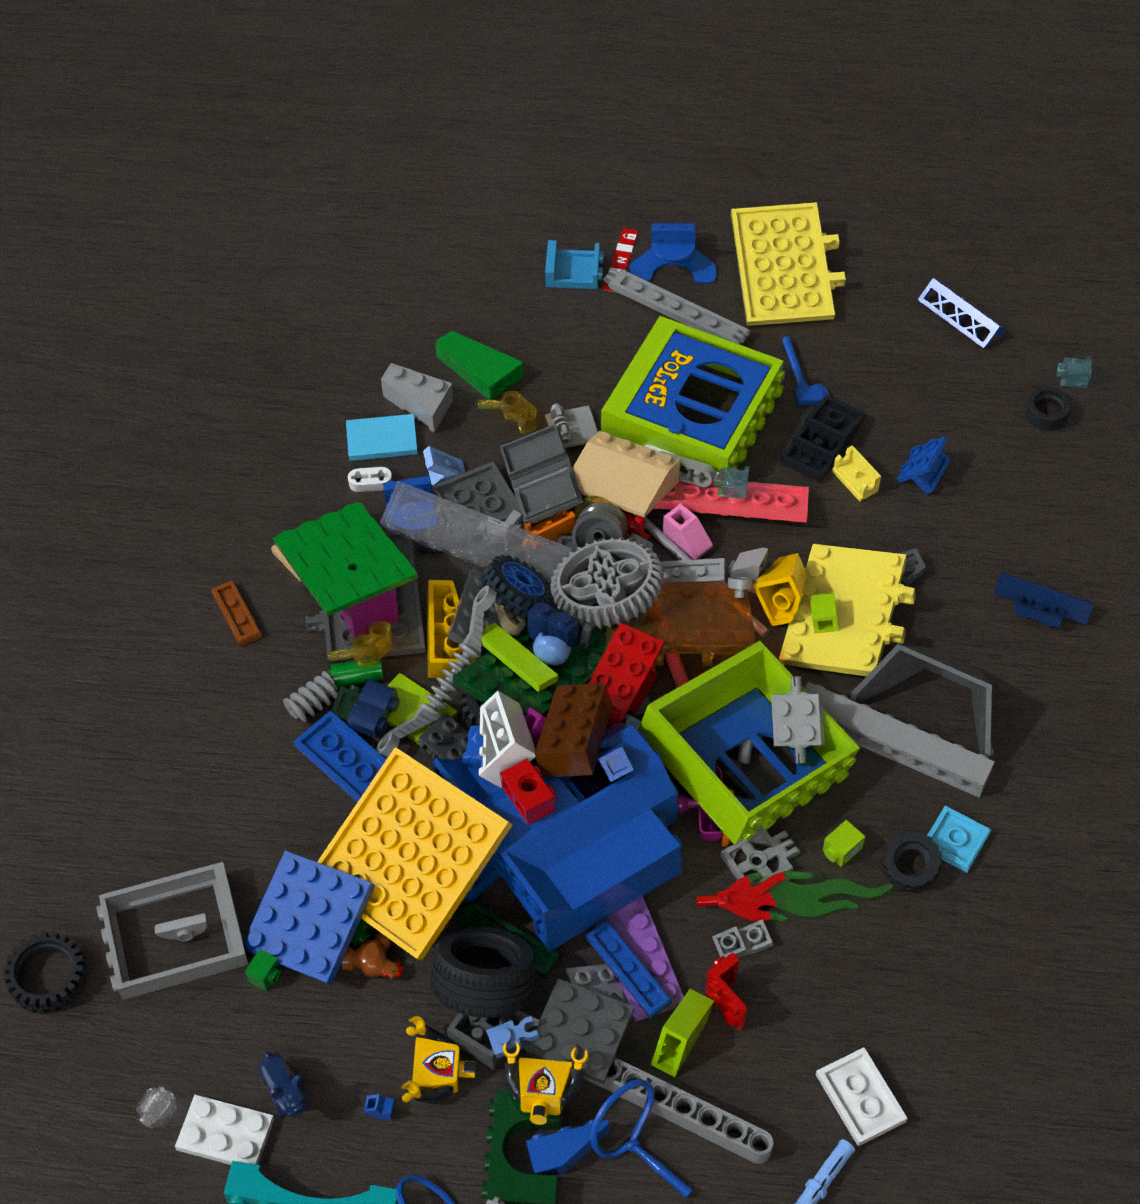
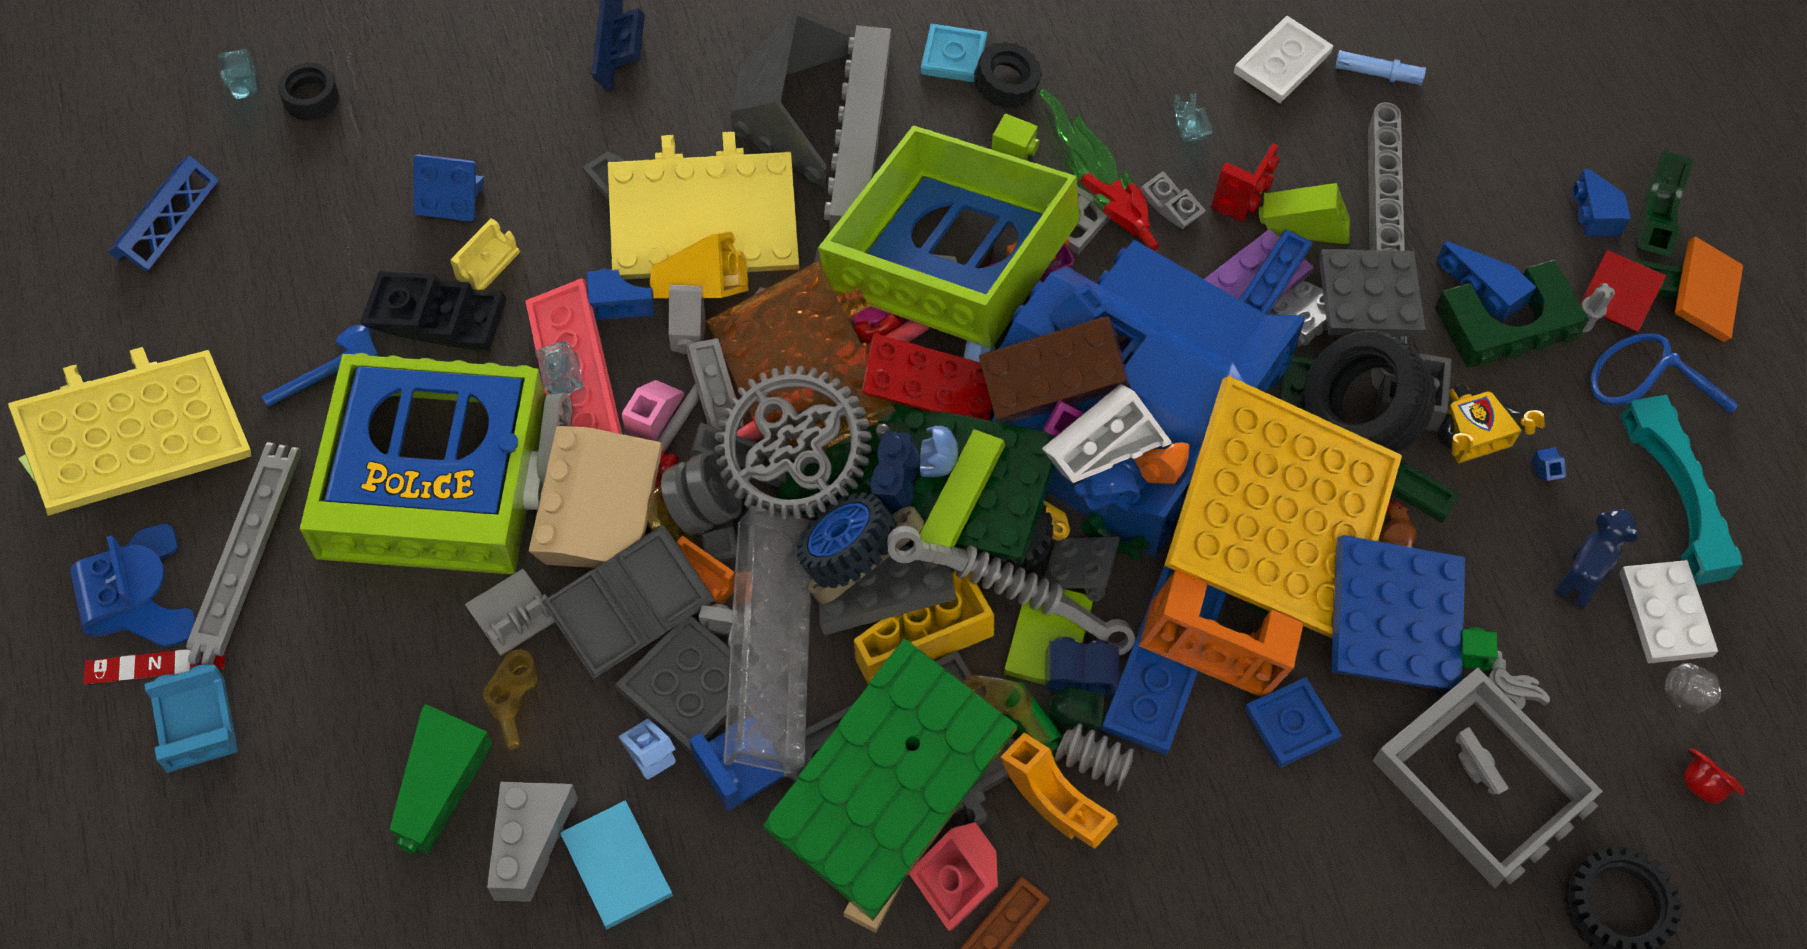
camera: 115 degrees left, 5 degrees up
(88, 1079) = (1708, 780): none -> red hat
(225, 989) = (1516, 687): none -> light grey piece
(274, 828) = (1292, 722): none -> blue plate
(280, 599) = (957, 873): none -> coral slope
(300, 665) = (1051, 794): none -> light orange arch
(315, 808) = (1243, 660): none -> orange plate
(369, 479) = (693, 850): white beam -> none
(404, 1004) = (1424, 492): none -> dark green tile
(469, 777) = (1164, 465): none -> orange plate
(511, 1034) = (1426, 343): medium blue plate -> none
(531, 804) = (1179, 367): red brick -> none
(543, 1084) = (1453, 295): torso -> none
(634, 1144) = (1408, 209): blue piece -> none
(739, 584) = (726, 309): light grey tile -> none
(794, 536) = (616, 298): none -> blue arch
(798, 719) = (899, 194): light grey plate -> none
(816, 989) = (1191, 122): none -> clear light blue plate
(824, 613) = (727, 216): lime brick -> none

